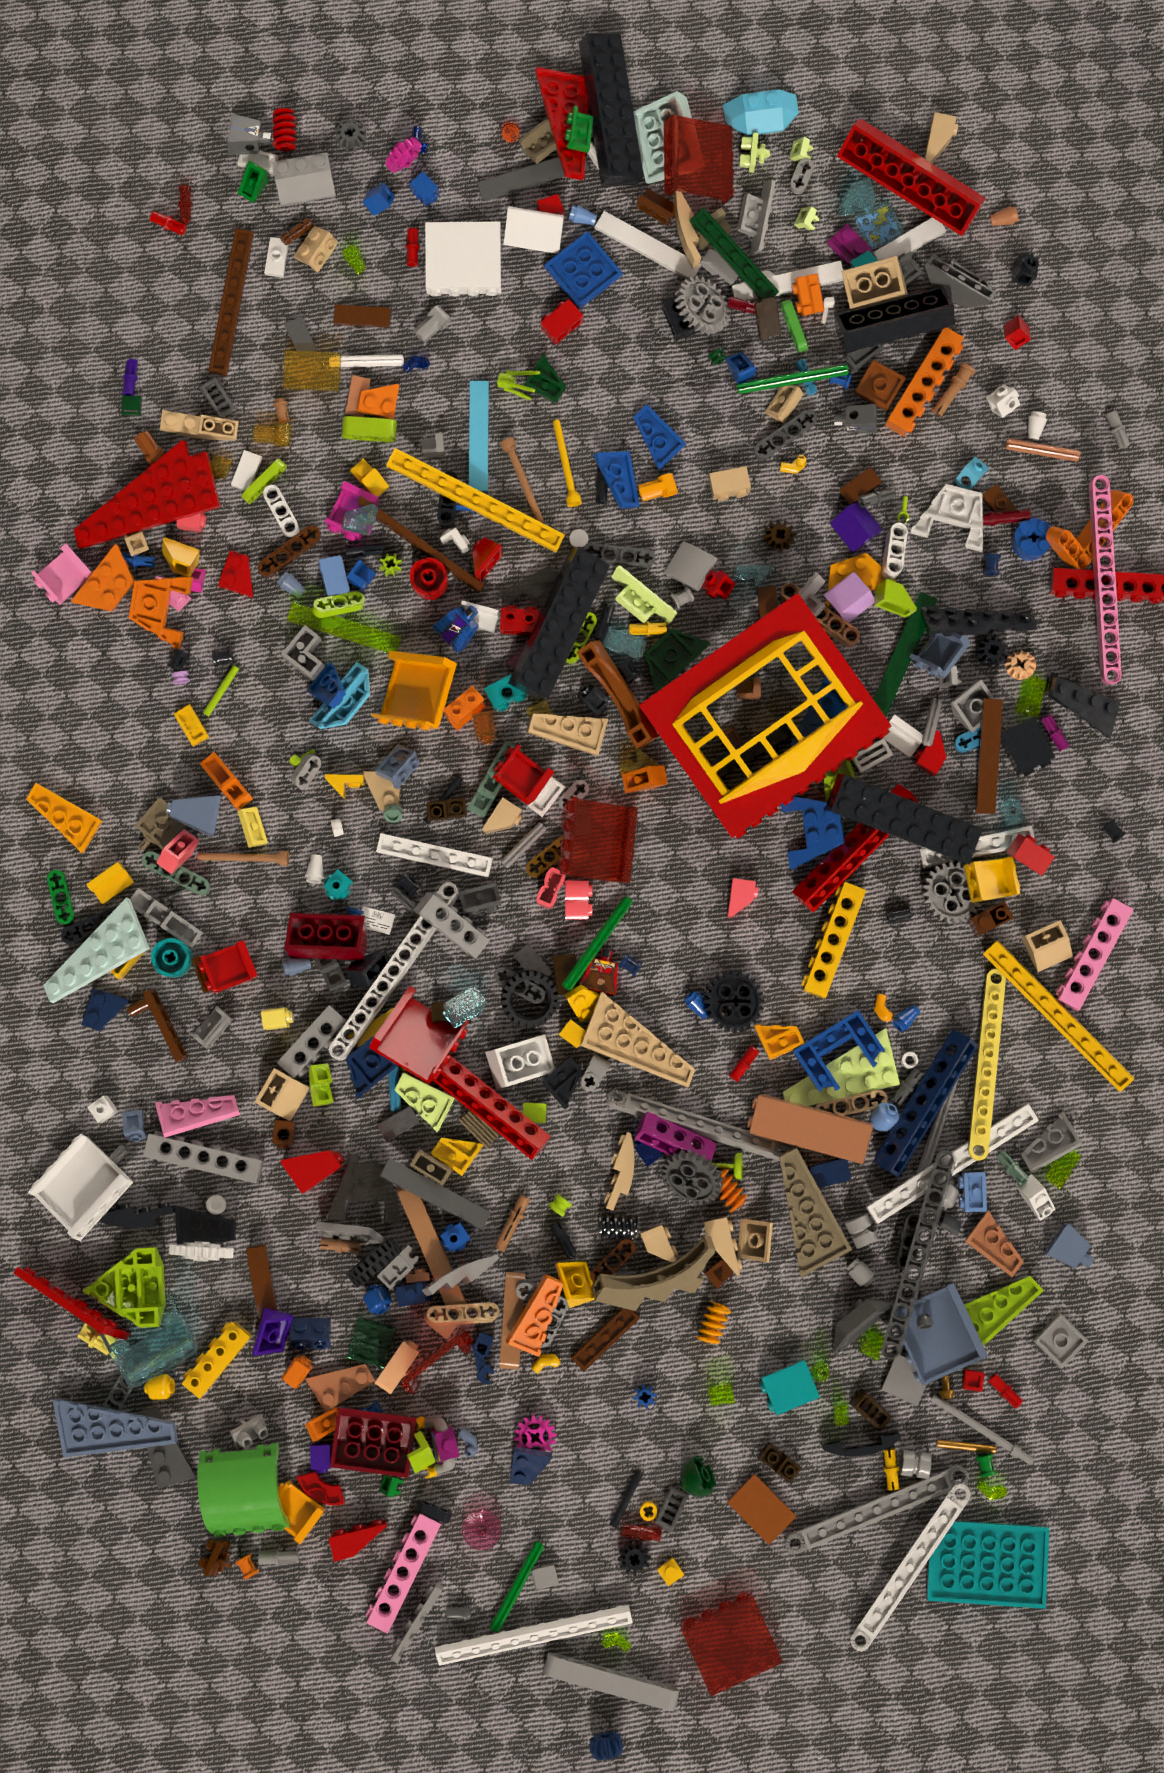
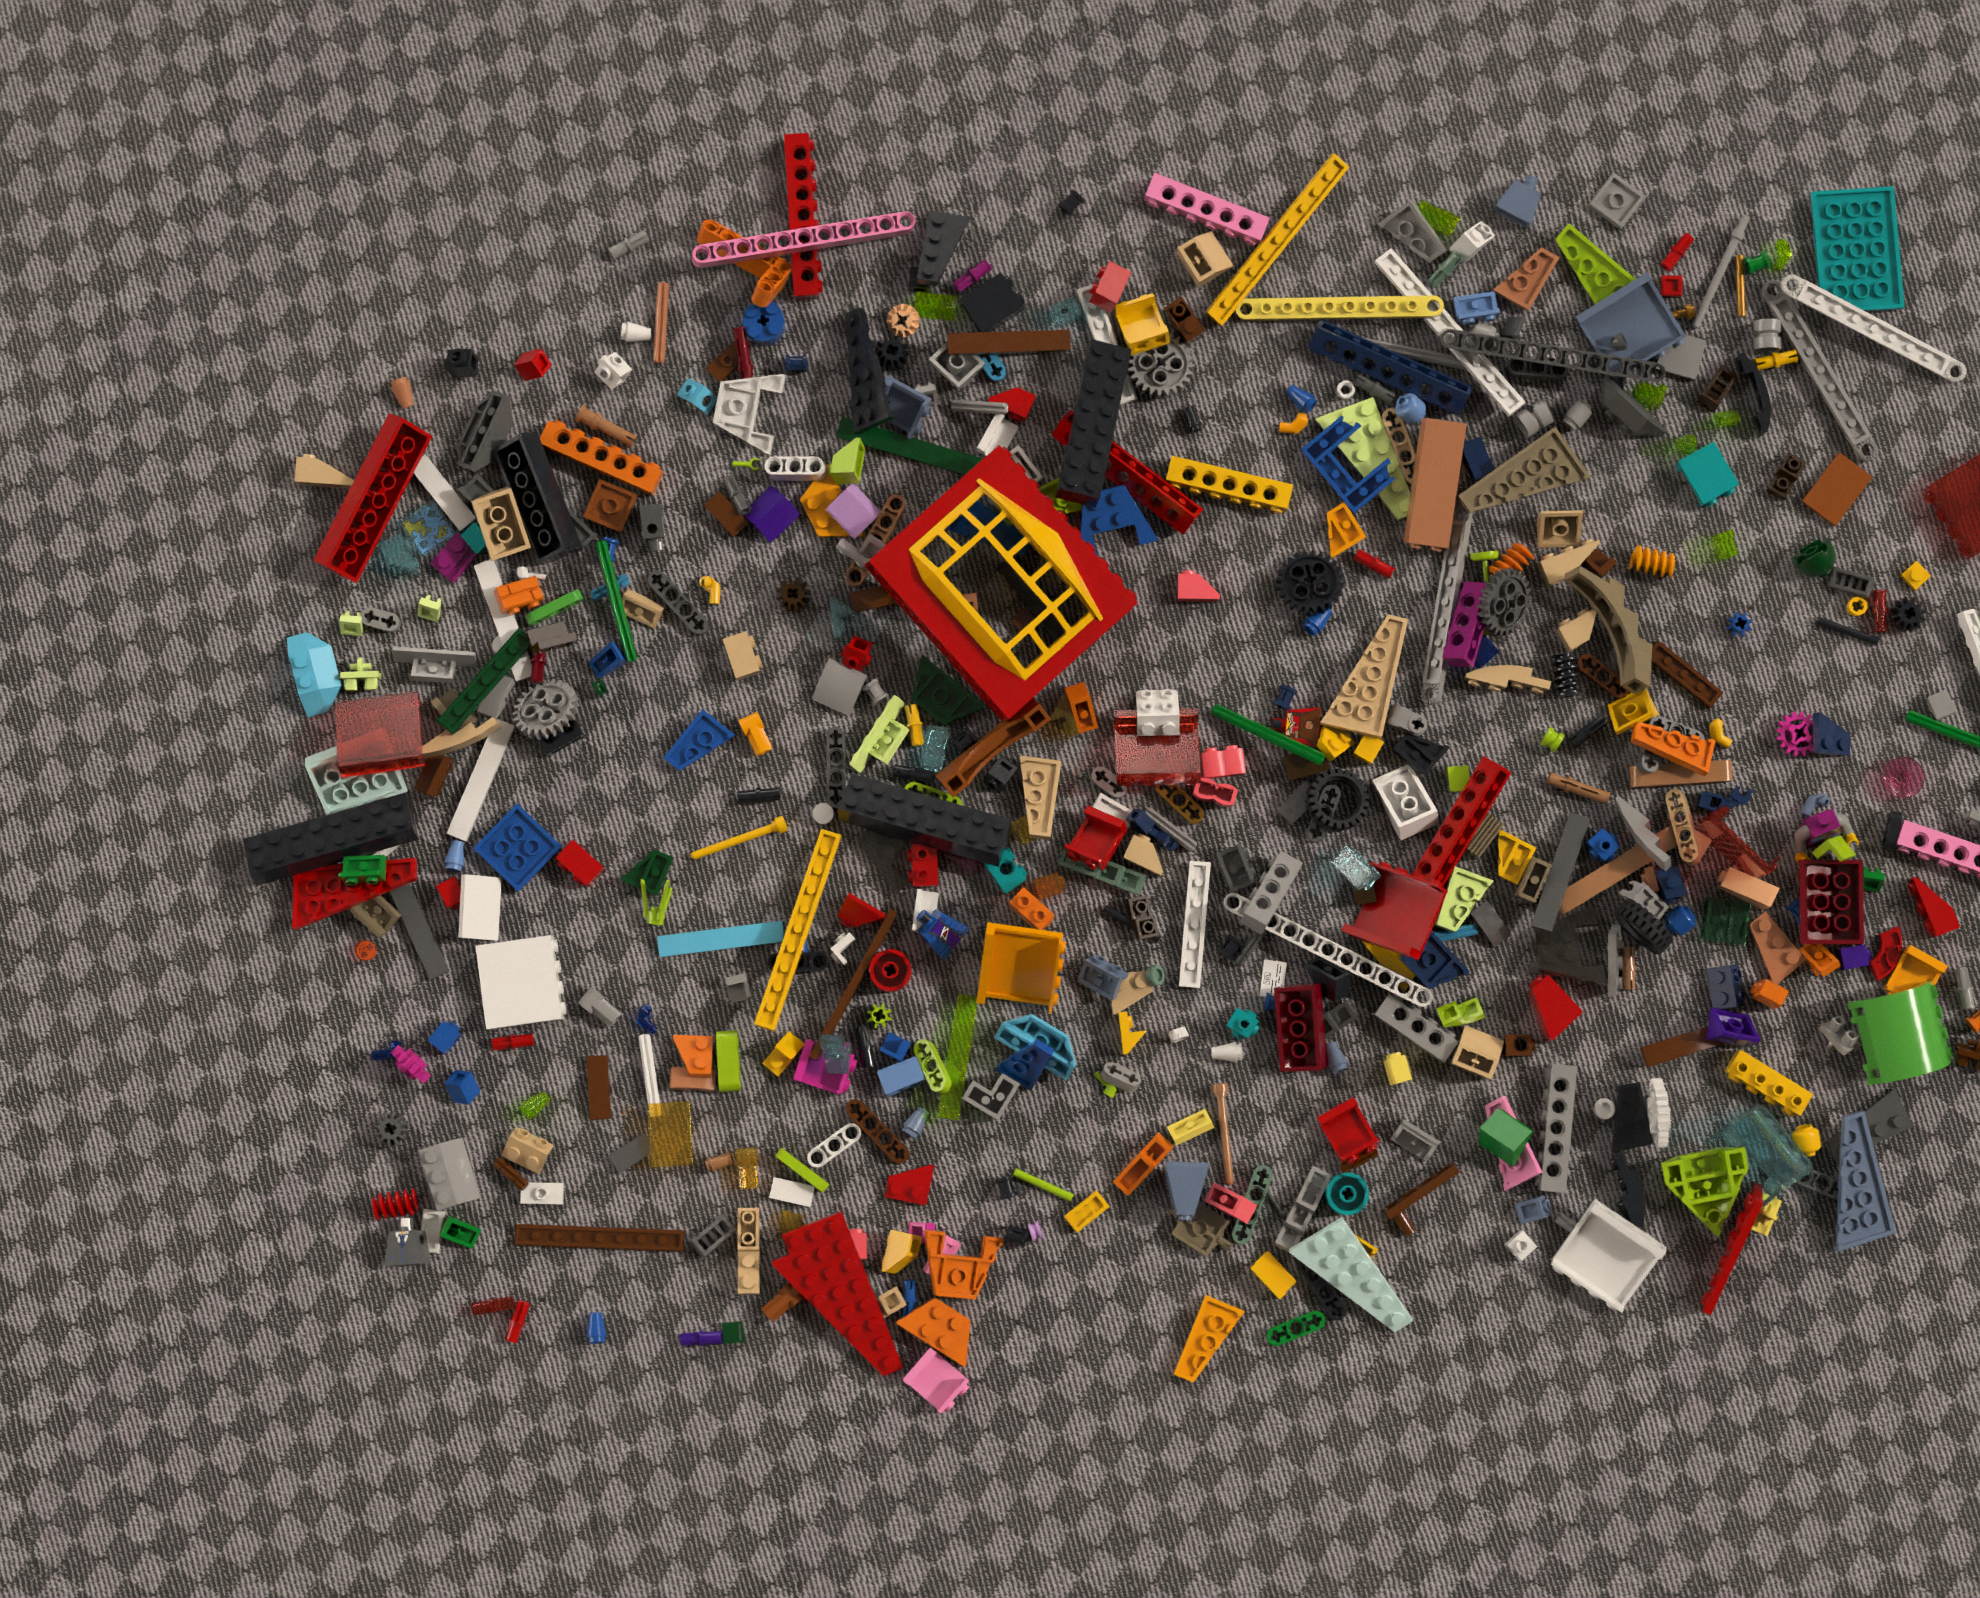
camera: 95 degrees left, 0 degrees up
(102, 1009) = (1411, 1263): dark blue wing -> none
(151, 288) = (596, 1330): none -> blue cone
(202, 1108) = (1504, 1136): none -> green slope
(508, 445) = (729, 903): medium nougat piece -> none
(528, 823) = (1144, 825): none -> dark blue piece
(619, 476) = (748, 777): blue wing -> none
(631, 846) = (1157, 712): none -> white bracket

